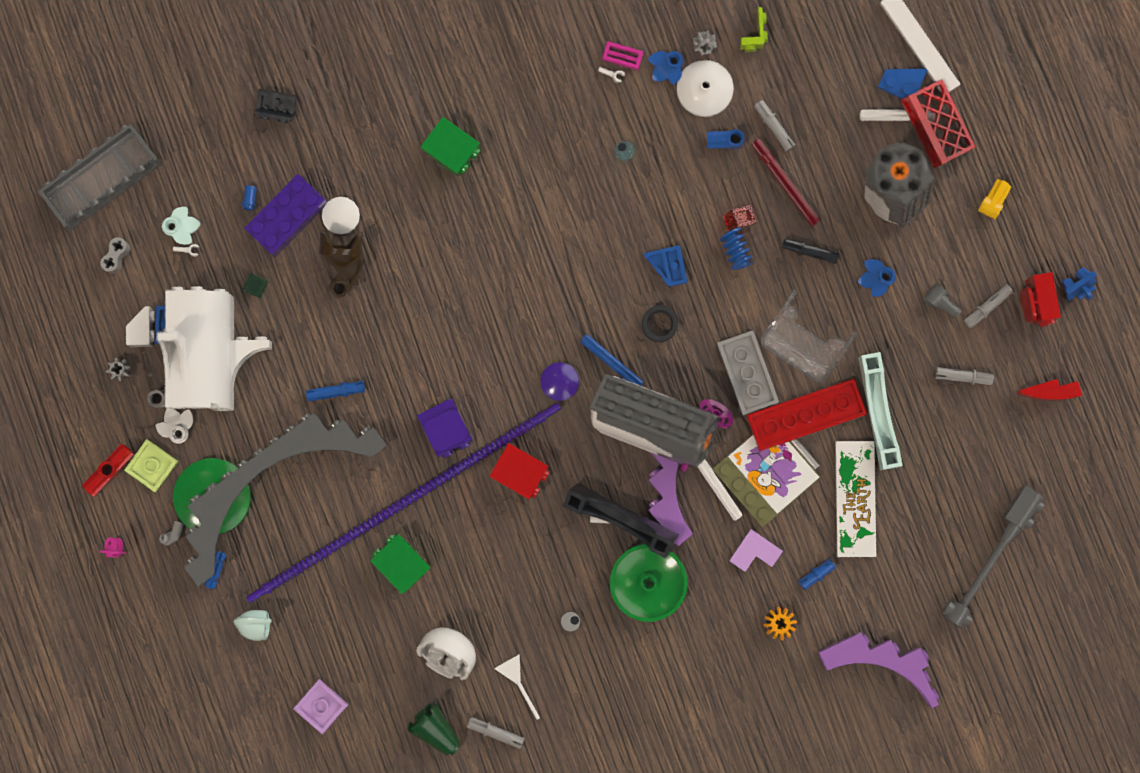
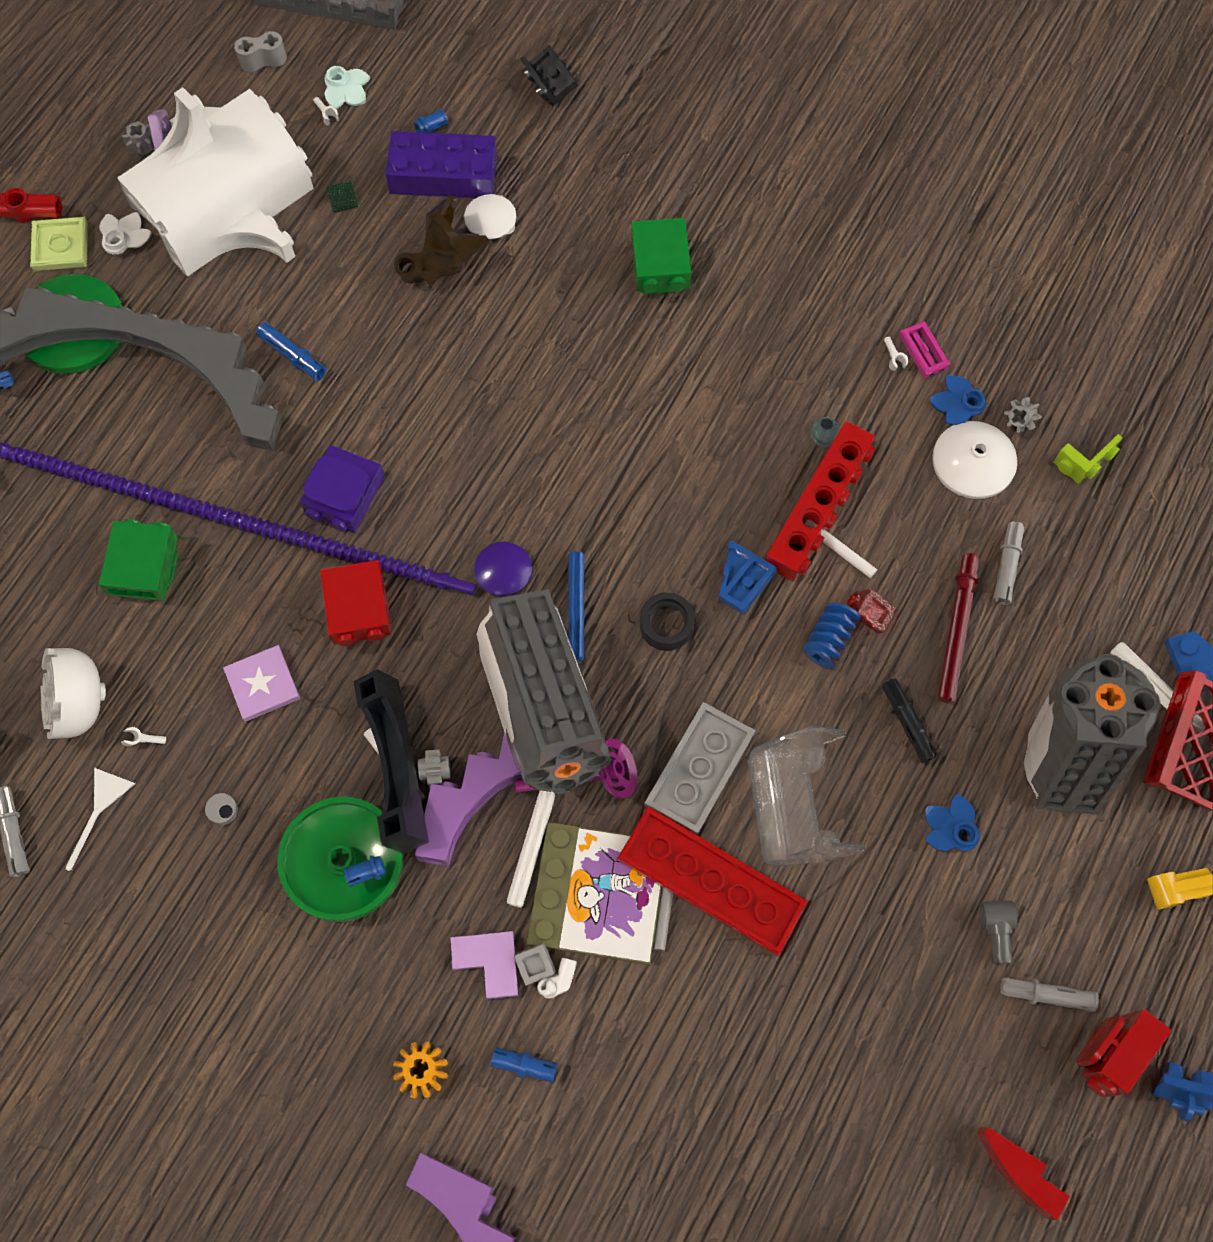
camera: 50 degrees right, 15 degrees down
(133, 358) = (159, 126): none -> lavender tile
(497, 635) = (140, 737): none -> white hand
(519, 552) = (261, 683): none -> lavender tile
(639, 502) = (434, 767): none -> light grey gear
(651, 142) = (849, 441): none -> red brick
(667, 575) = (365, 871): none -> blue pin
(693, 201) = (845, 552): none -> white bar
(722, 140) = (940, 520): blue piece -> none
(775, 531) = (534, 963): none -> light grey tile
(792, 526) = (559, 982): none -> white arm
(855, 499) = (660, 1034): white tile -> none
(875, 391) = (796, 967): light aqua arch -> none
(964, 376) = (937, 1040): light grey axle -> none

